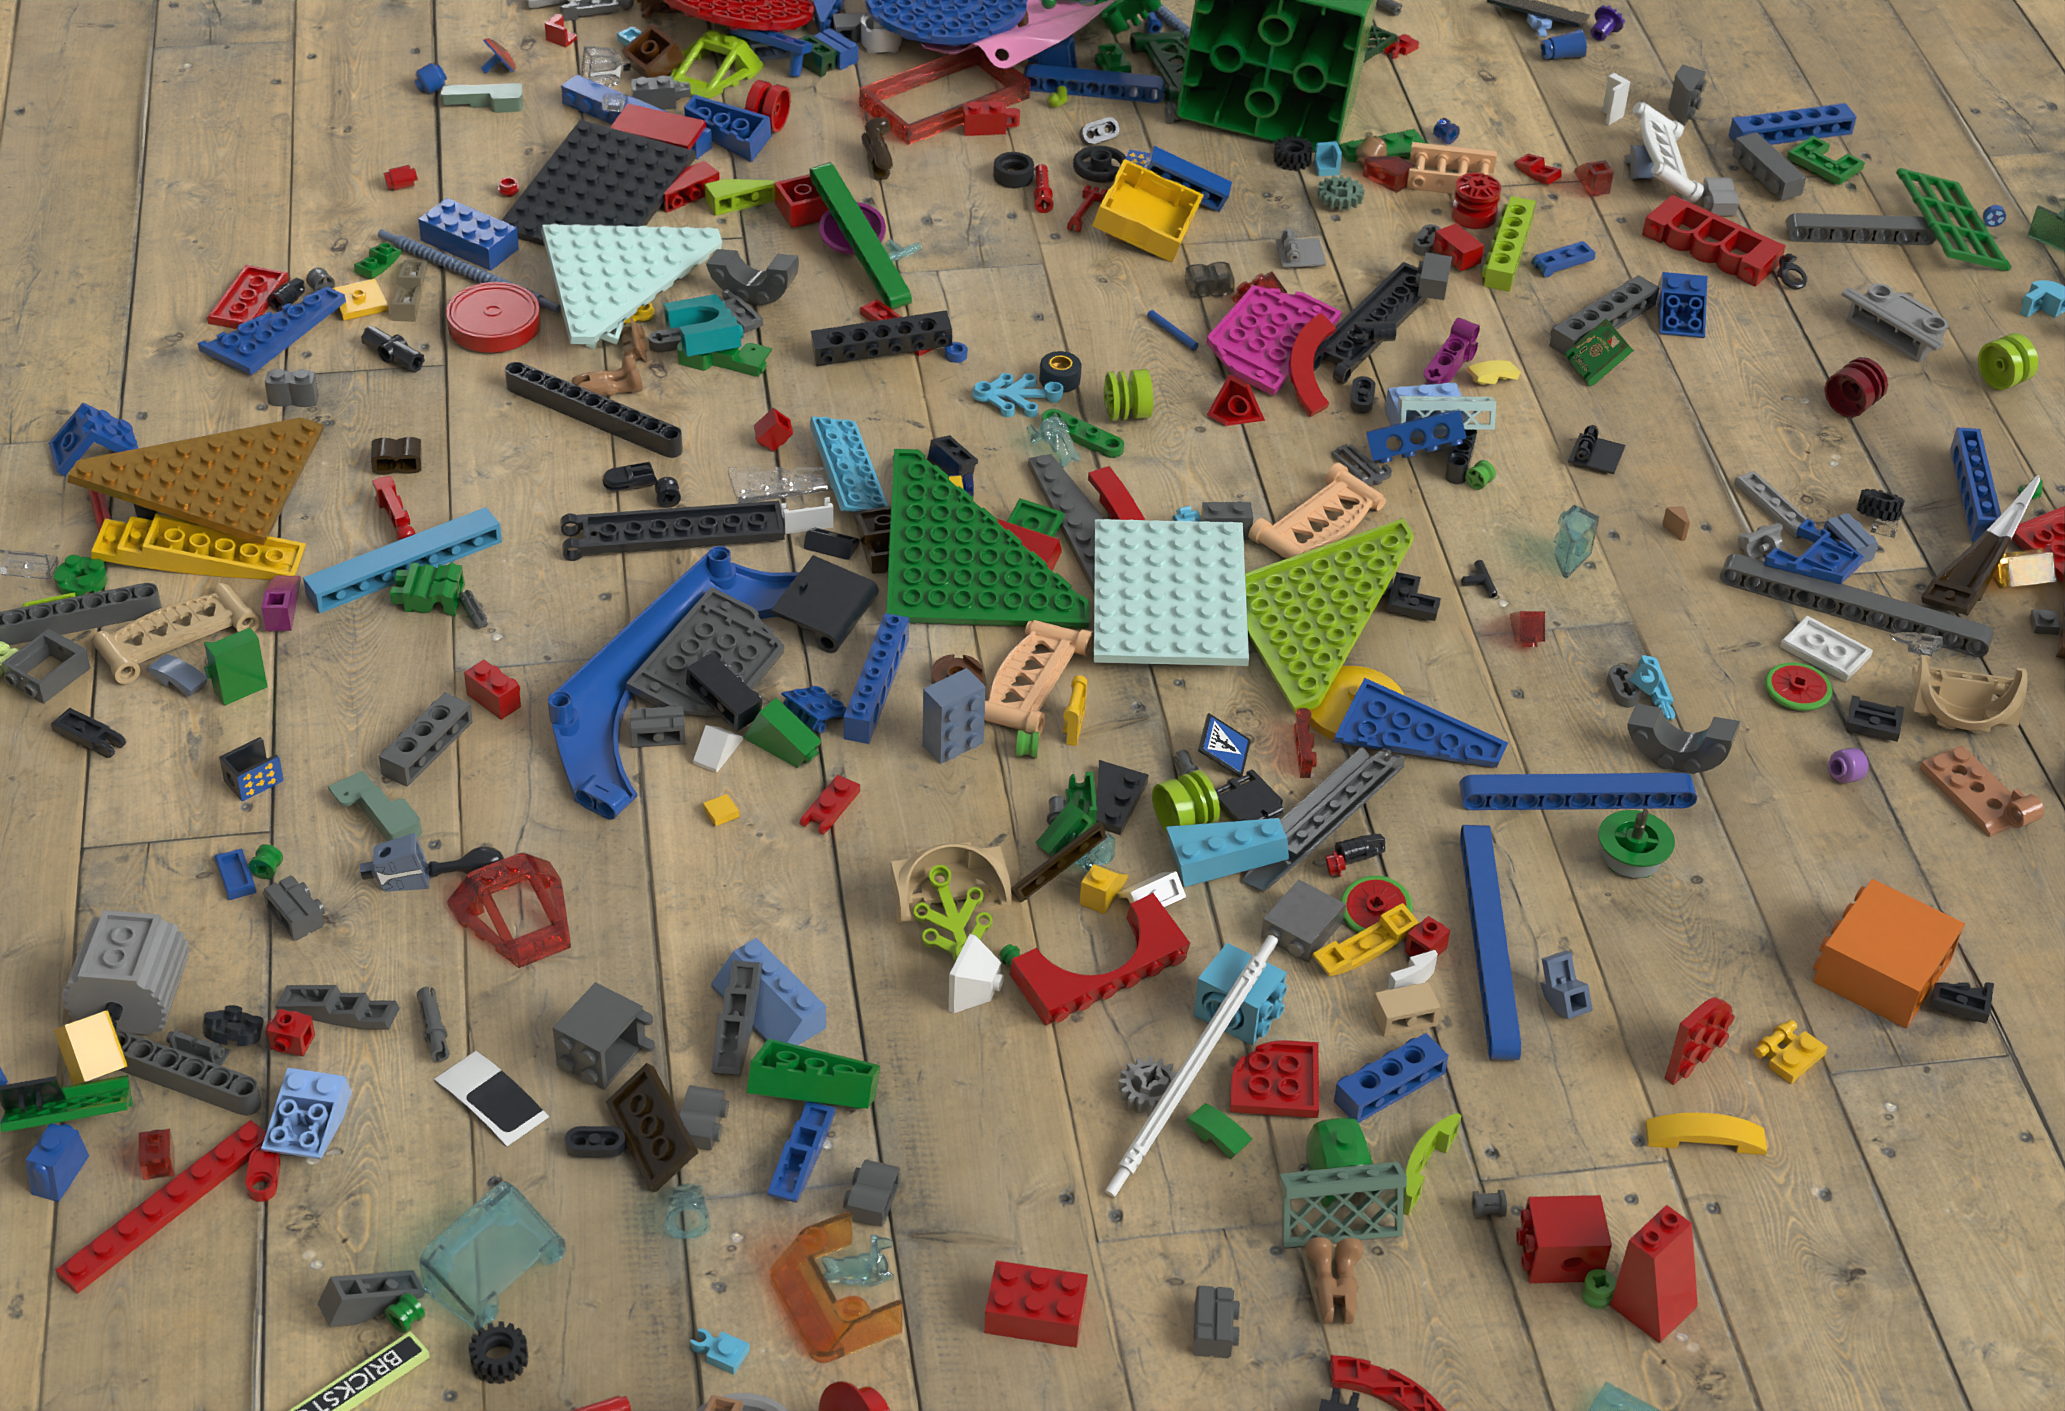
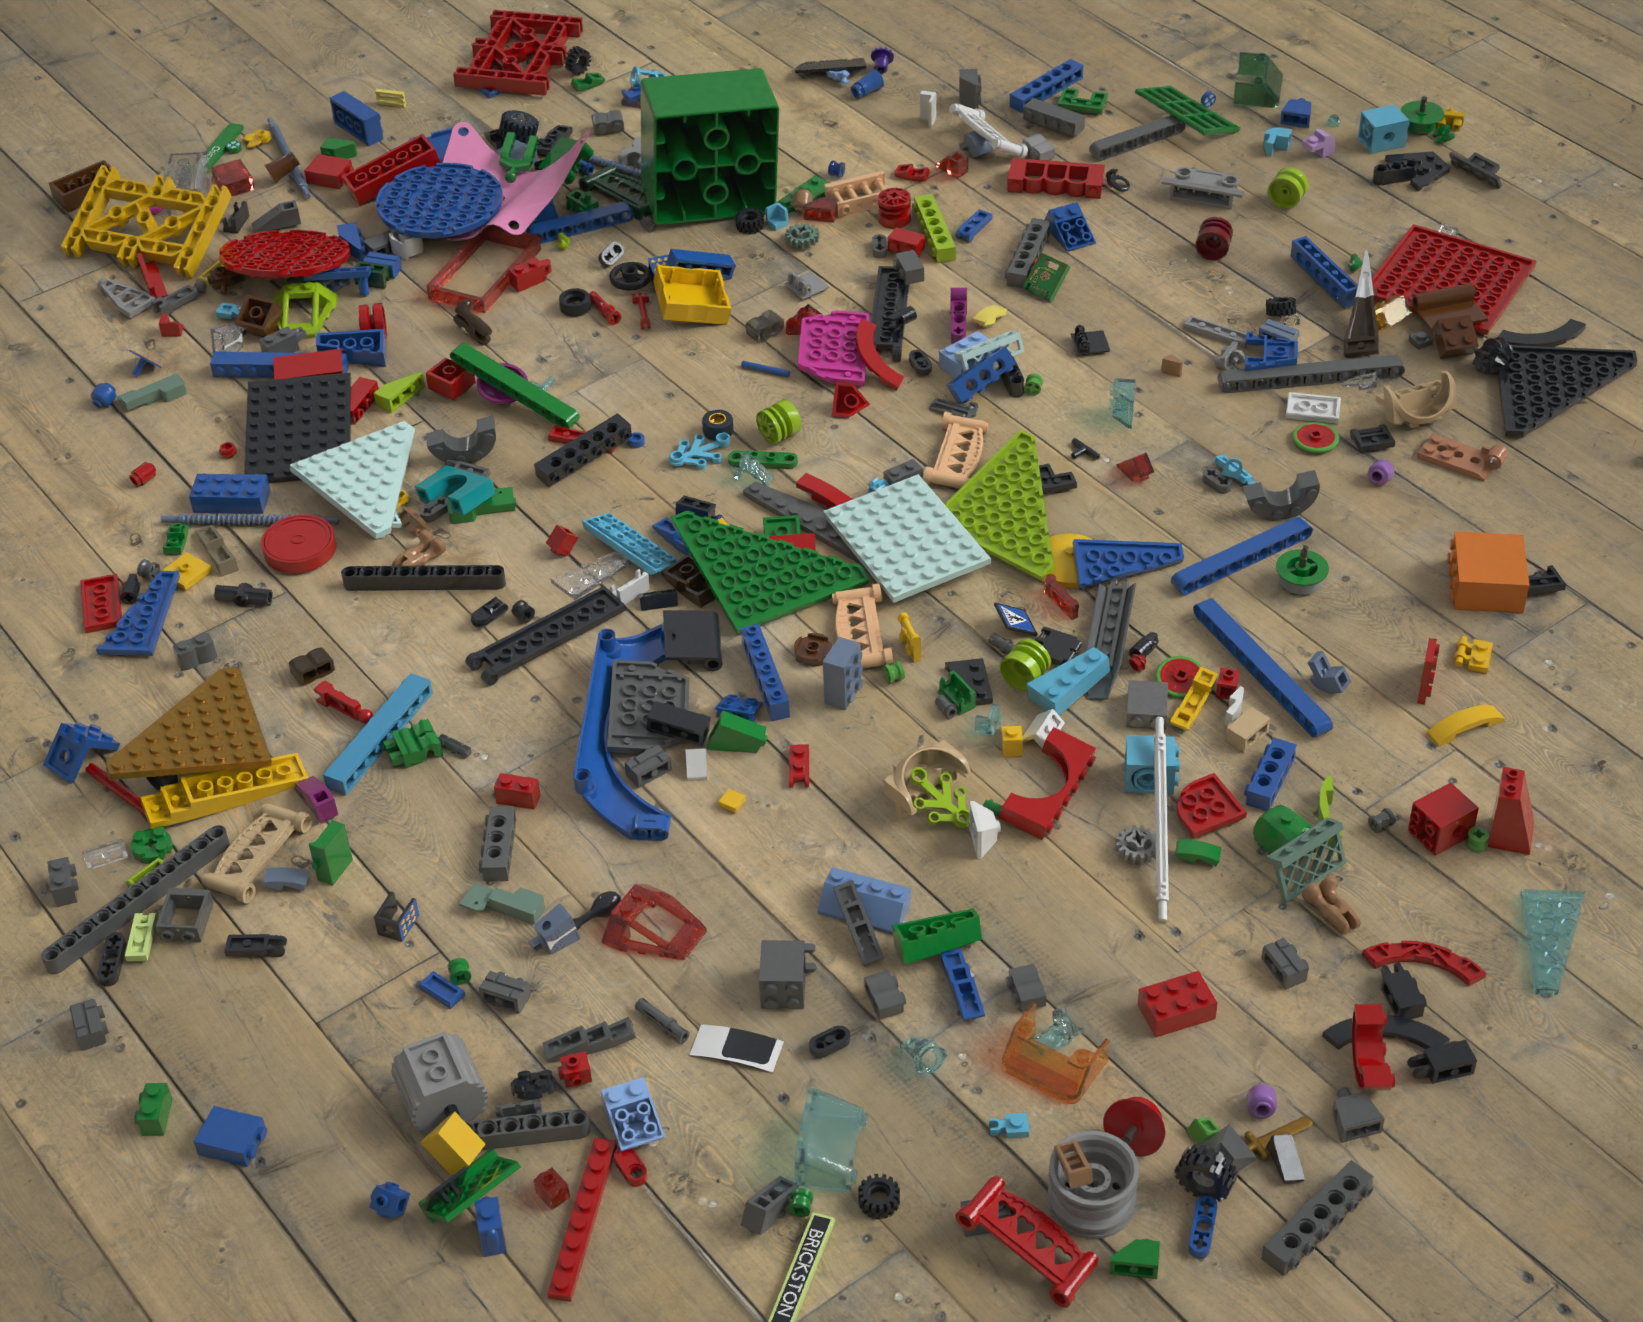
camera: 25 degrees left, 0 degrees up
(614, 102) = (261, 360): clear slope -> none
(651, 1127) = (862, 1014): dark brown plate -> none
(1059, 862) = (979, 729): dark brown slope -> none
(1064, 829) = (963, 715): green panel -> none

